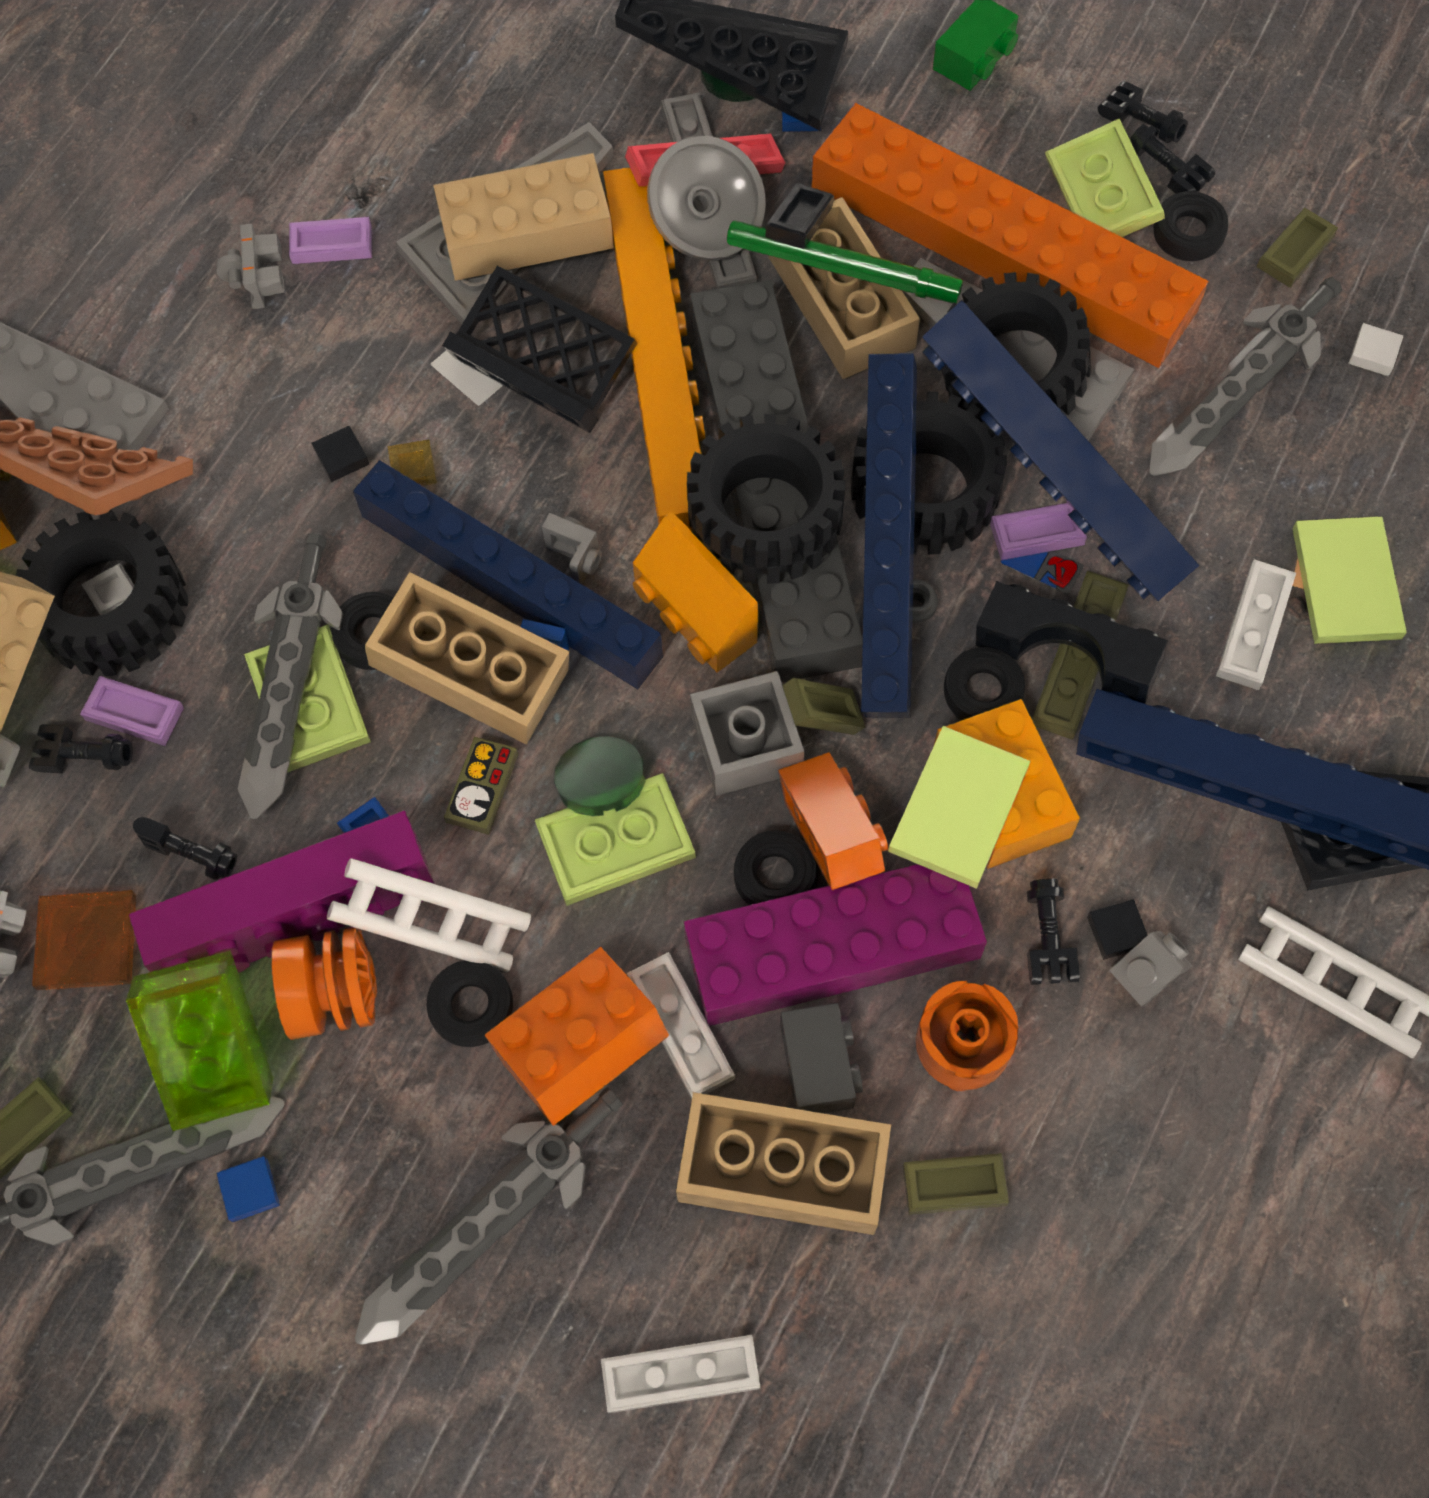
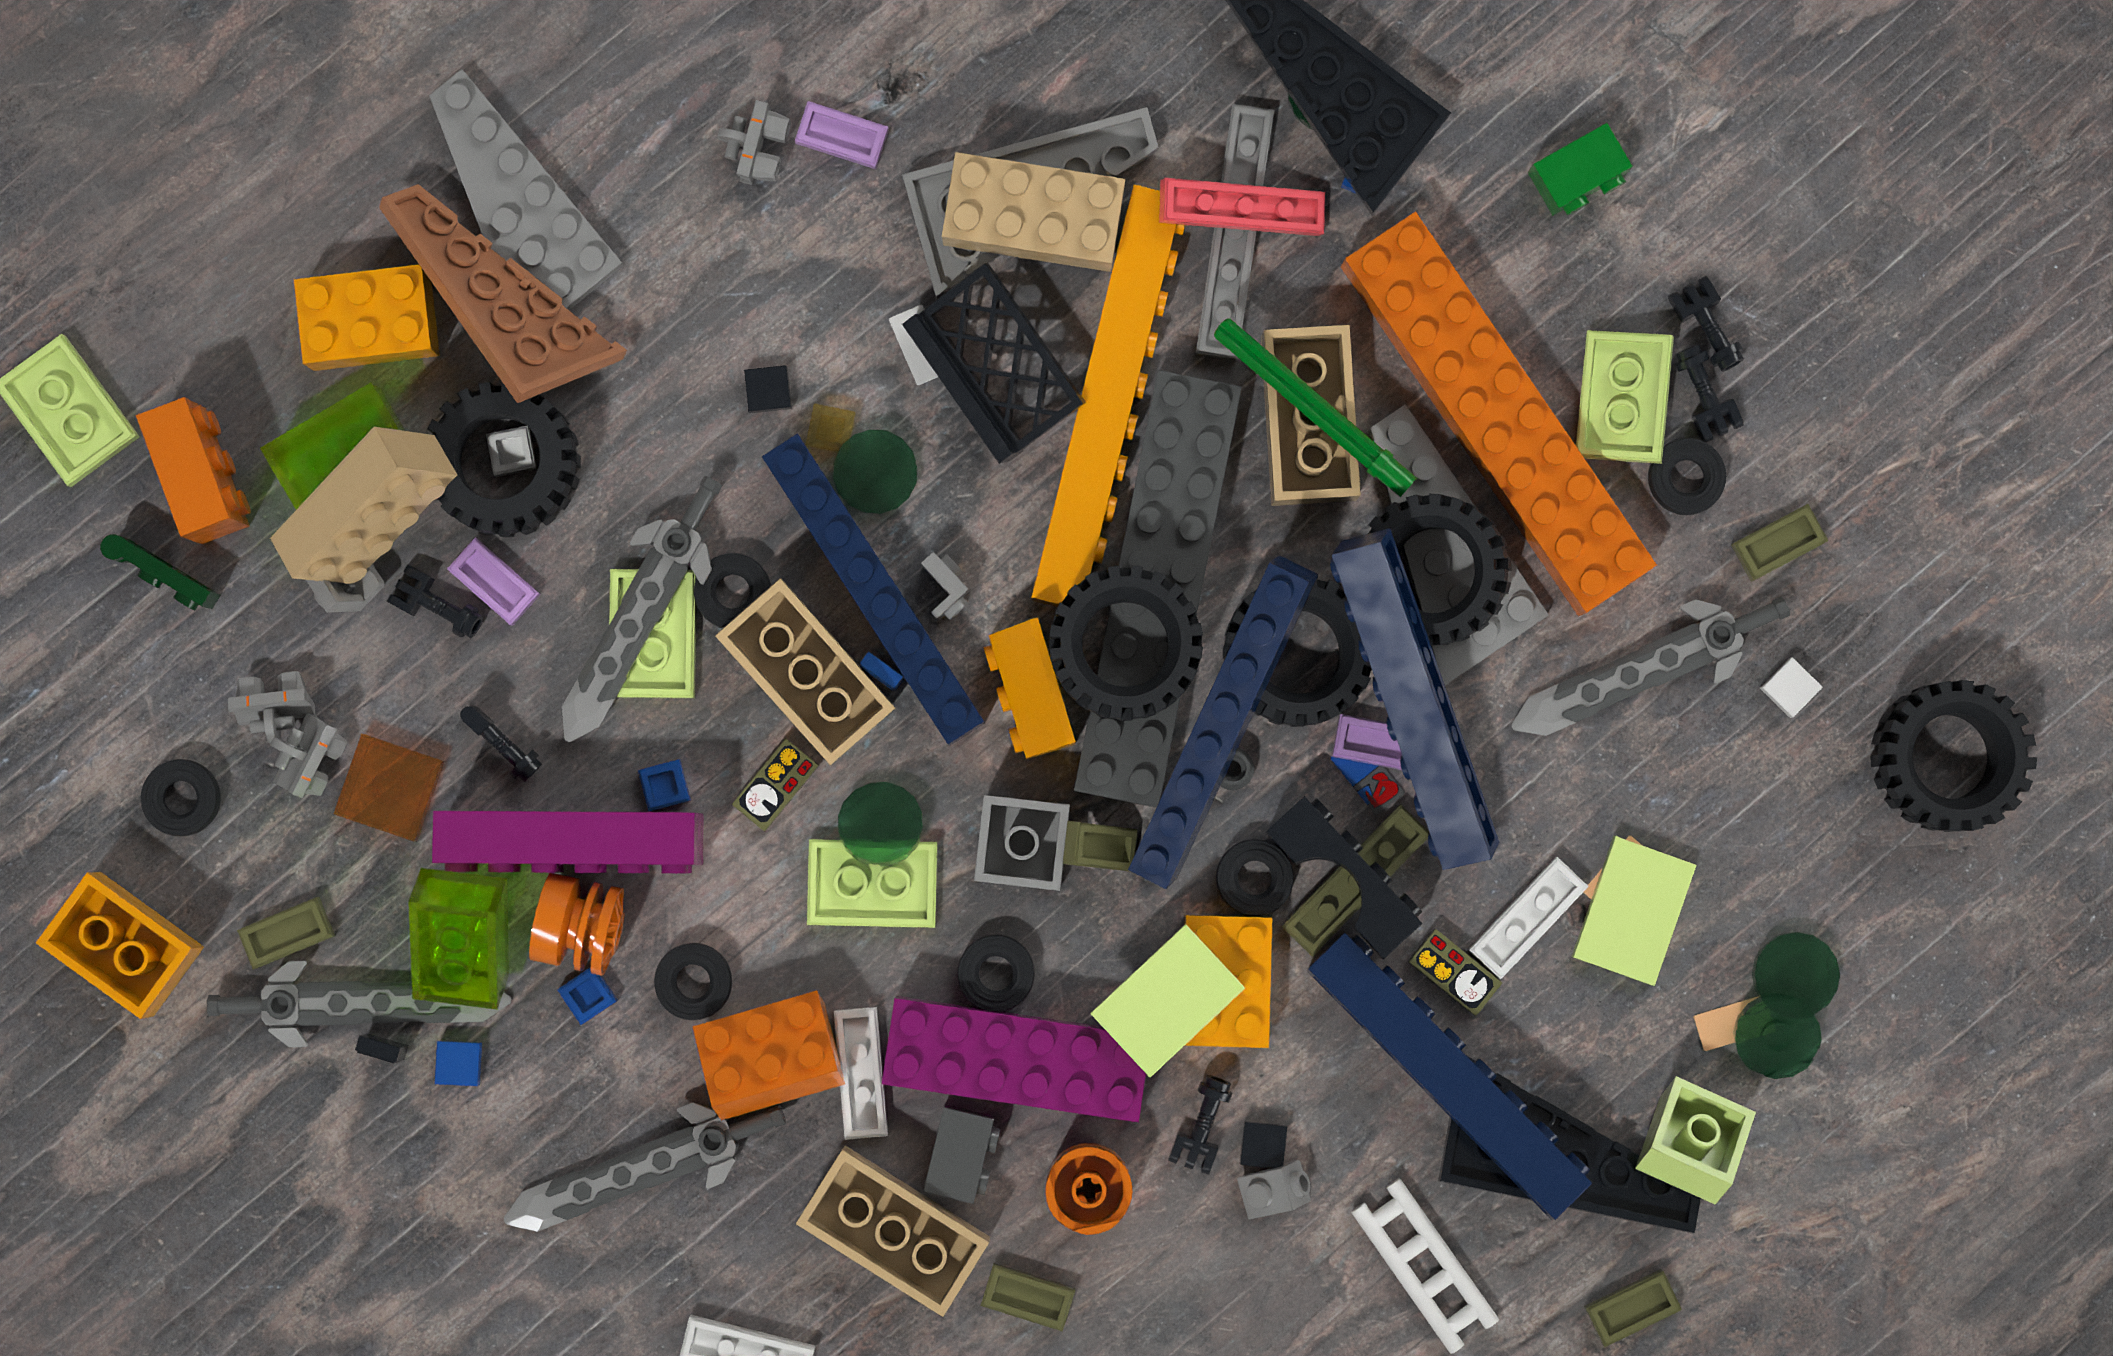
camera: 20 degrees right, 20 degrees up
(156, 1203) = (381, 1048): none -> black tile
(363, 1063) = (587, 995): none -> blue tile
(413, 893) = (677, 887): white bar -> none
(469, 478) = (874, 471): none -> clear green tile
(717, 177) = (1231, 288): light grey dish -> none
(799, 216) = (1292, 341): black tile -> none
(833, 820) = (1059, 959): orange brick -> none
(1216, 696) = (1455, 972): none -> tile

